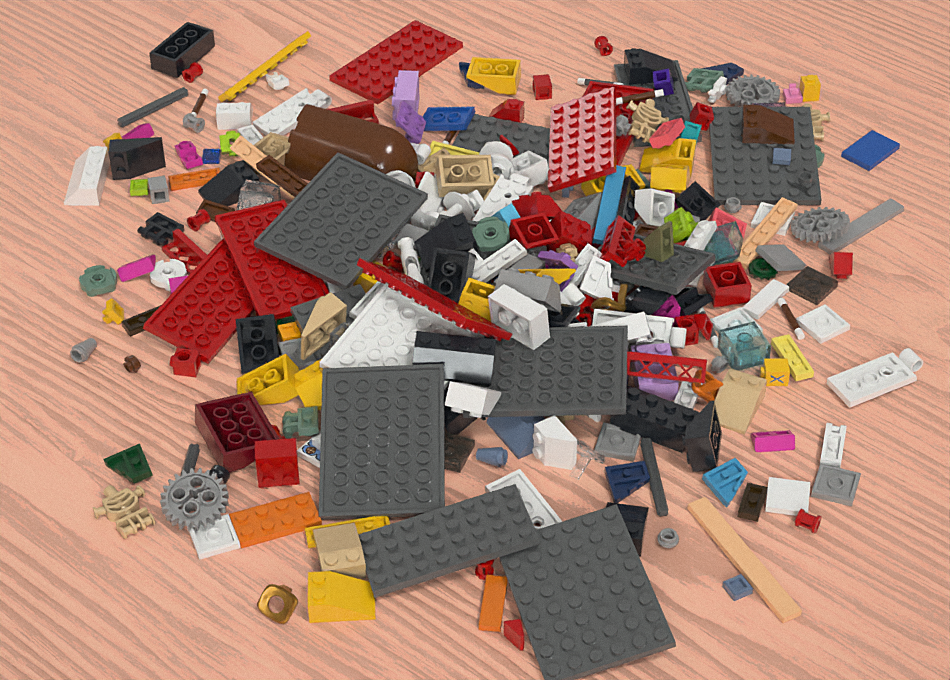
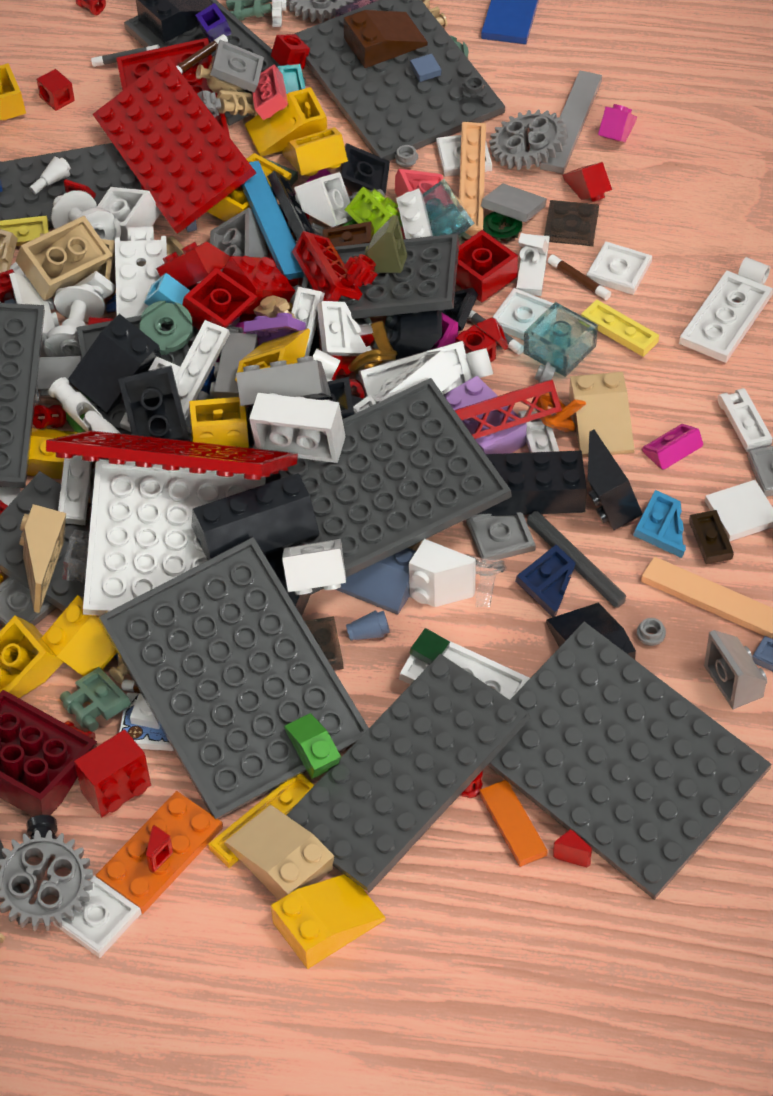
camera: 30 degrees left, 10 degrees up
(268, 513) = (158, 848): none -> red slope
(289, 599) = (249, 949): pearl gold piece -> none
(400, 500) = (313, 745): none -> bright green slope
(503, 129) = (54, 172): none -> white cone
(509, 110) = (37, 140): red slope -> none
(514, 476) = (429, 646): none -> dark green tile
(655, 109) = (237, 66): none -> light grey plate
(702, 581) = (734, 669): none -> light grey slope
(769, 285) = (532, 244): none -> white tile
(775, 371) = (616, 355): yellow brick -> none
(889, 237) = (617, 123): none -> dark pink slope

